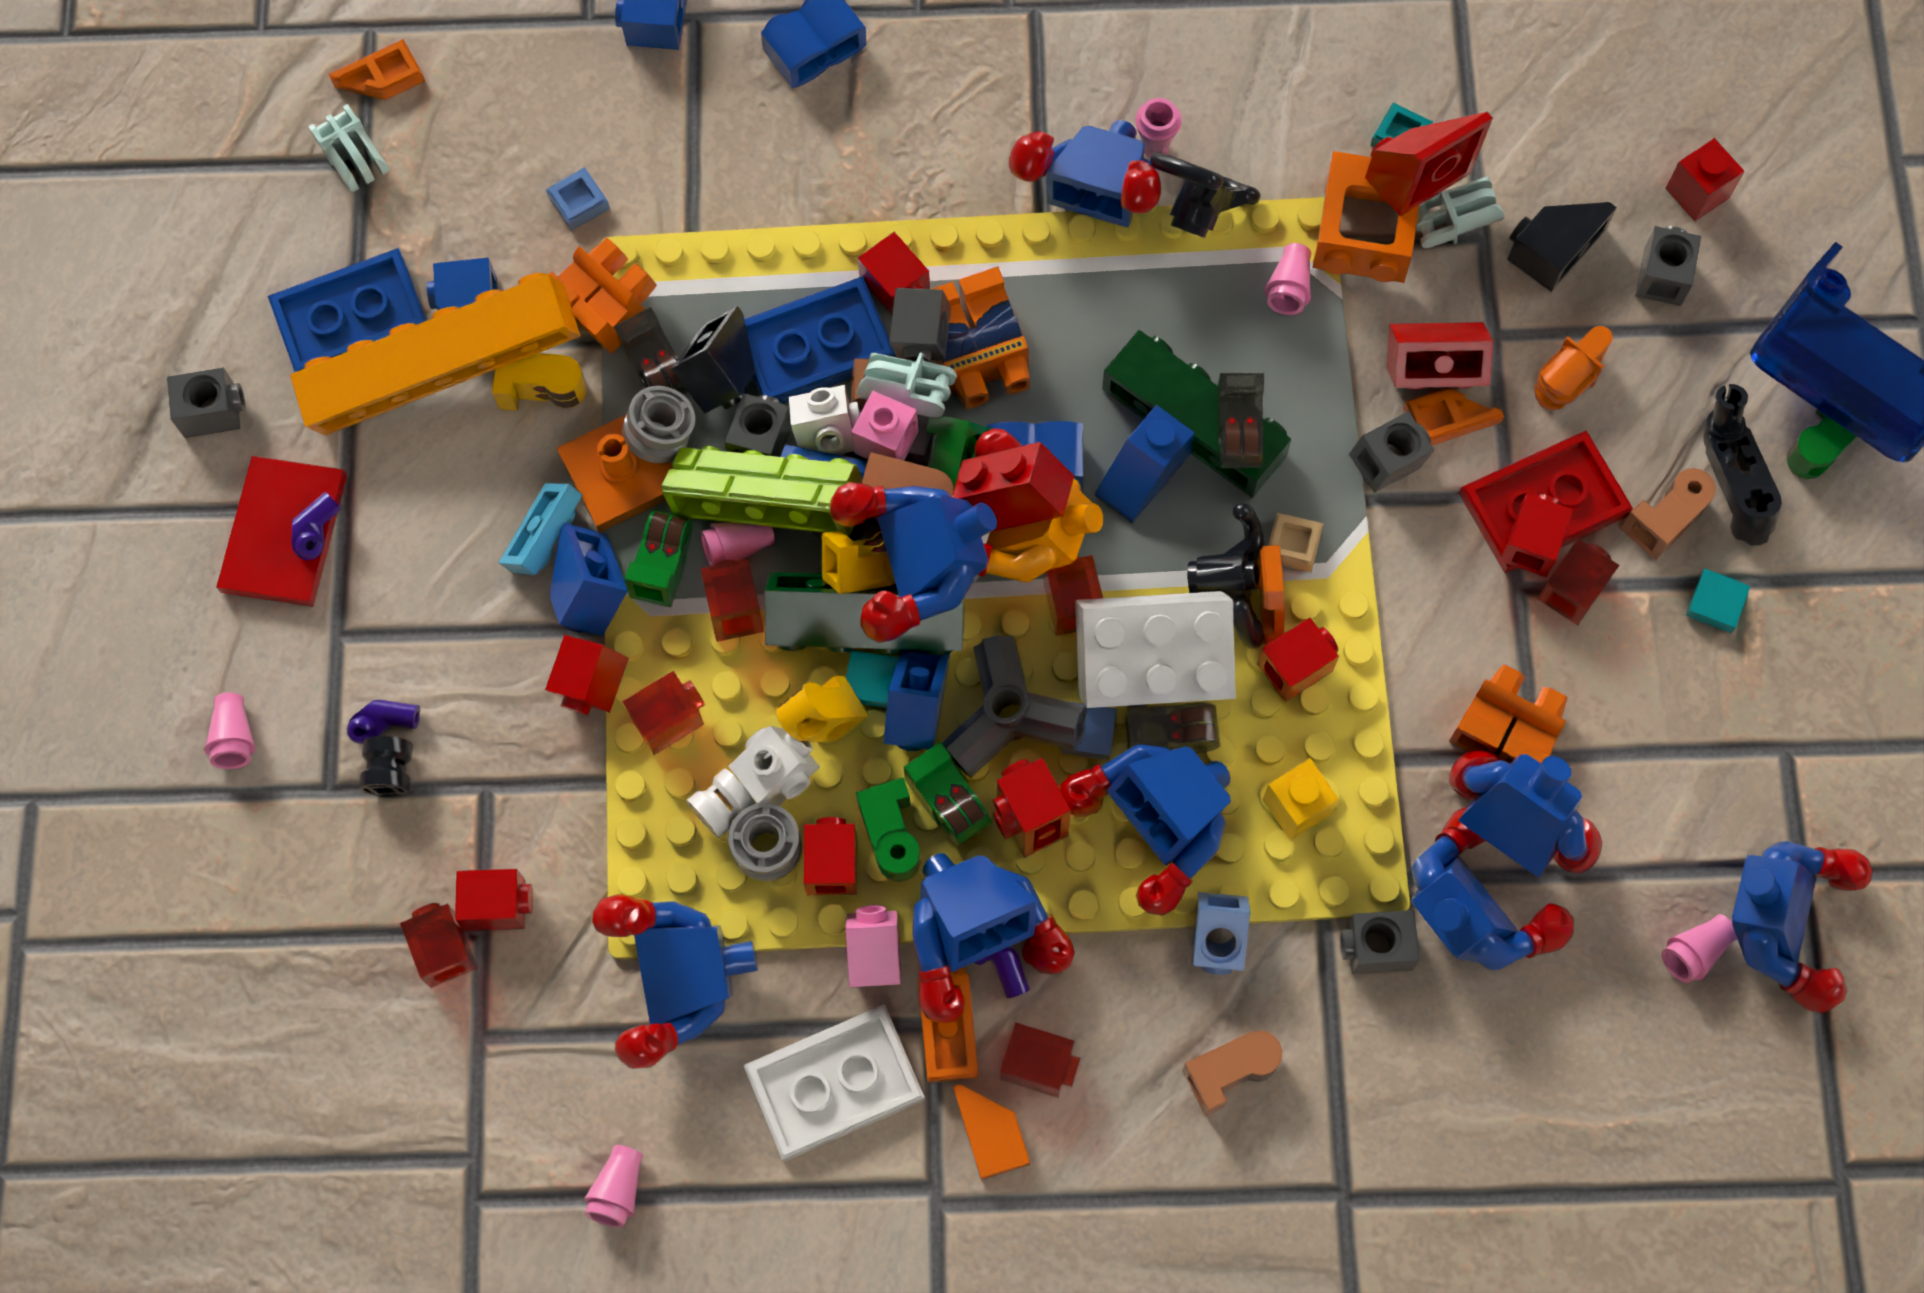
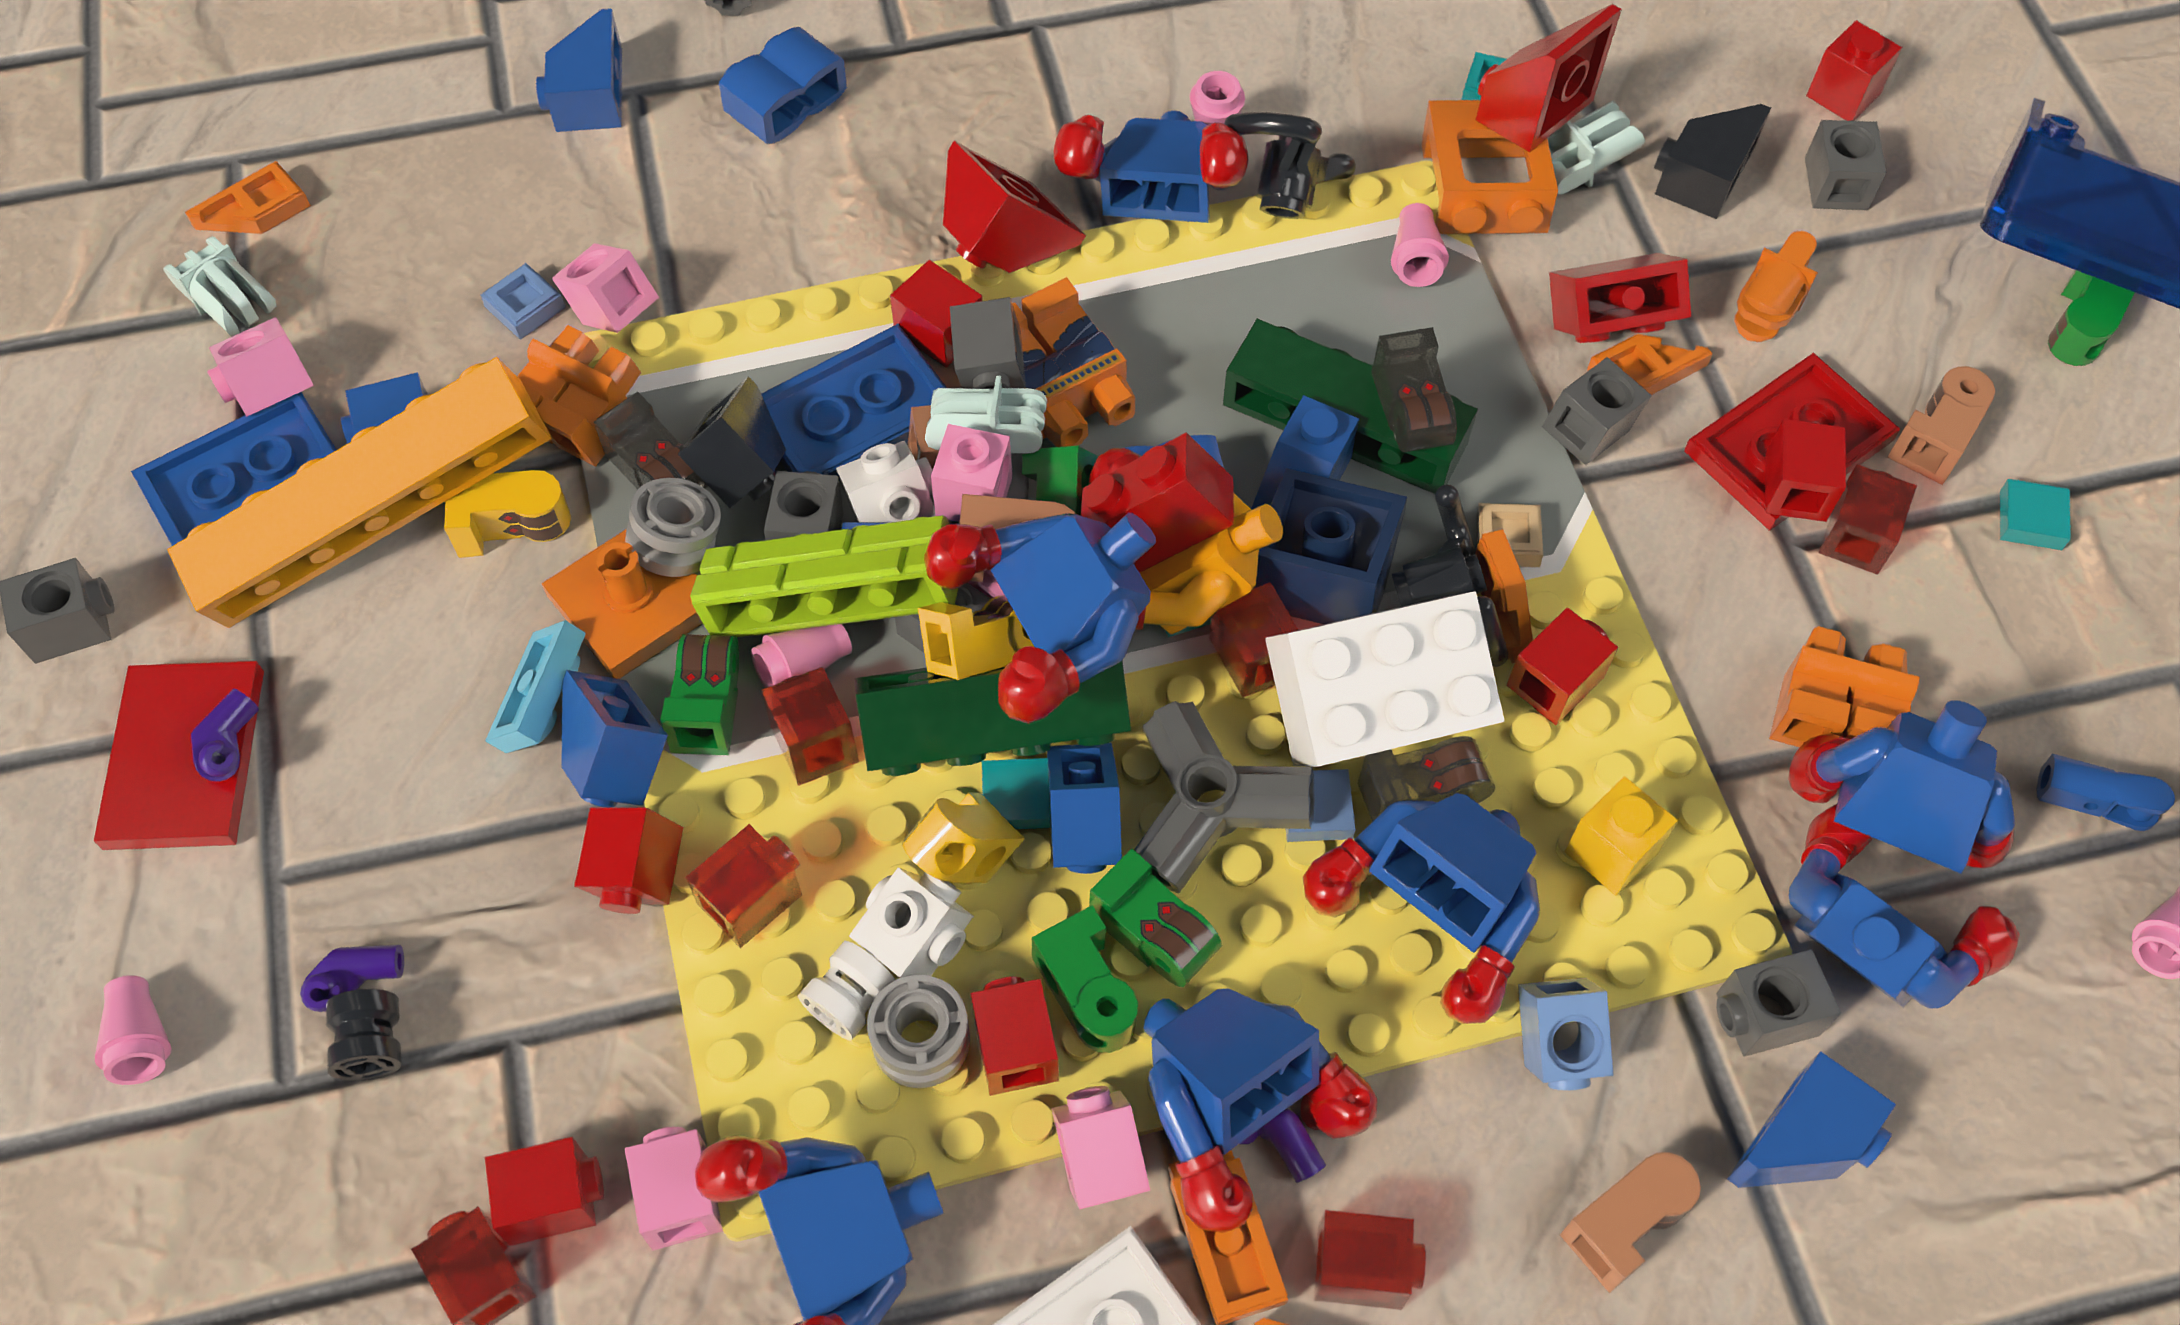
camera: 15 degrees left, 10 degrees down
(370, 228) = (258, 368): none -> bright pink brick
(573, 912) = (665, 1188): none -> bright pink brick
(642, 205) = (605, 287): none -> bright pink brick
(963, 194) = (1001, 214): none -> red slope
(1030, 806) = (1276, 909): red brick -> none
(1146, 532) = (1331, 548): none -> dark blue slope
(1380, 1037) = (1817, 1129): none -> blue slope
(1685, 834) = (2103, 792): none -> blue bar
(1750, 496) = (2016, 364): black beam -> none

